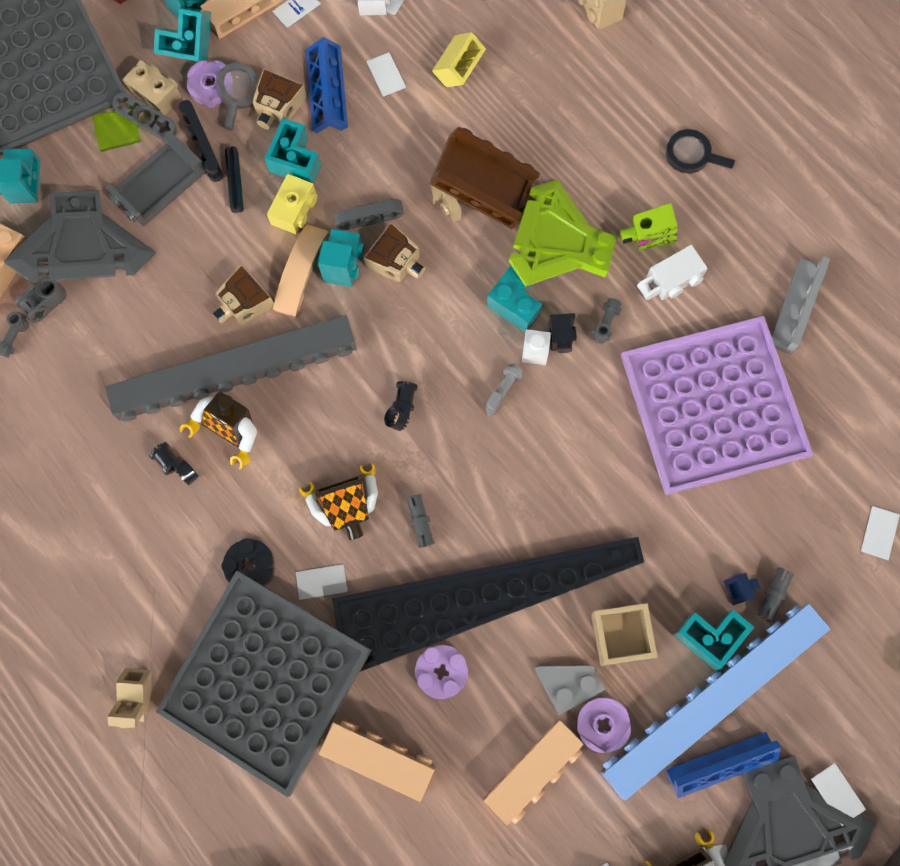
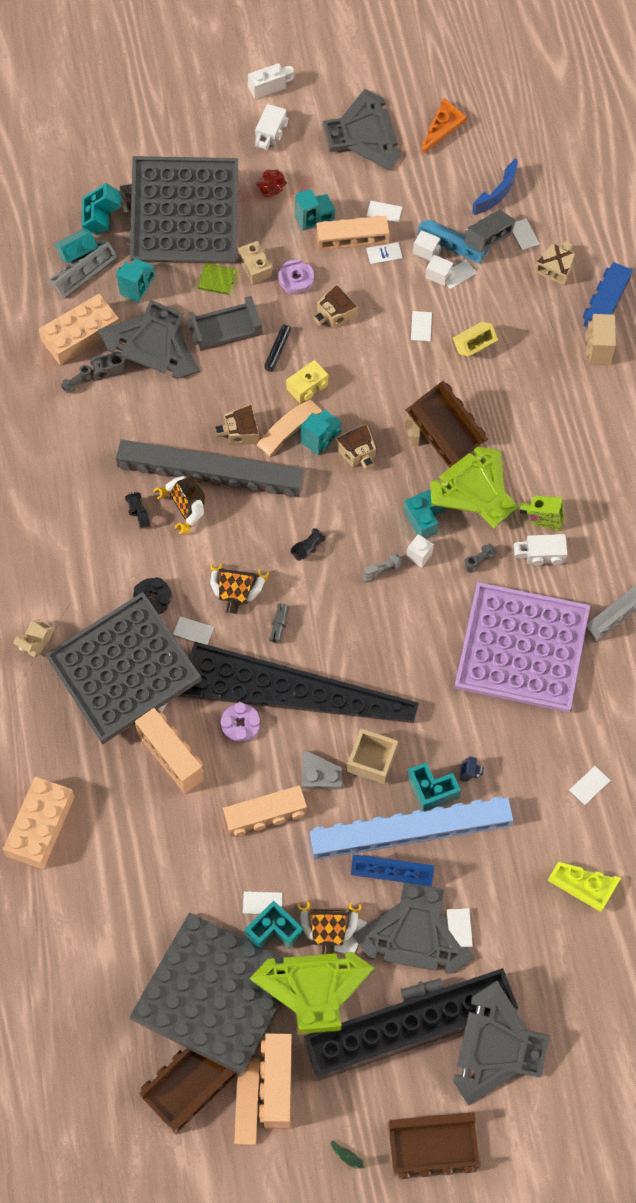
camera: 25 degrees right, 10 degrees down
(141, 107) = (239, 271): dark grey beam -> none
(190, 39) = (296, 242): teal brick -> none
(204, 149) = (268, 318): black plate -> none
(236, 88) = (311, 289): piece -> none
(289, 155) = (323, 348): teal brick -> none
(330, 82) = (376, 315): blue fence -> none
(369, 214) = (355, 412): dark grey beam -> none
(561, 332) = (444, 550): black brick -> none
(618, 721) = (329, 796): lavender plate -> none
(691, 151) = (606, 475): black piece -> none
(775, 594) = (491, 785): dark grey pin -> none

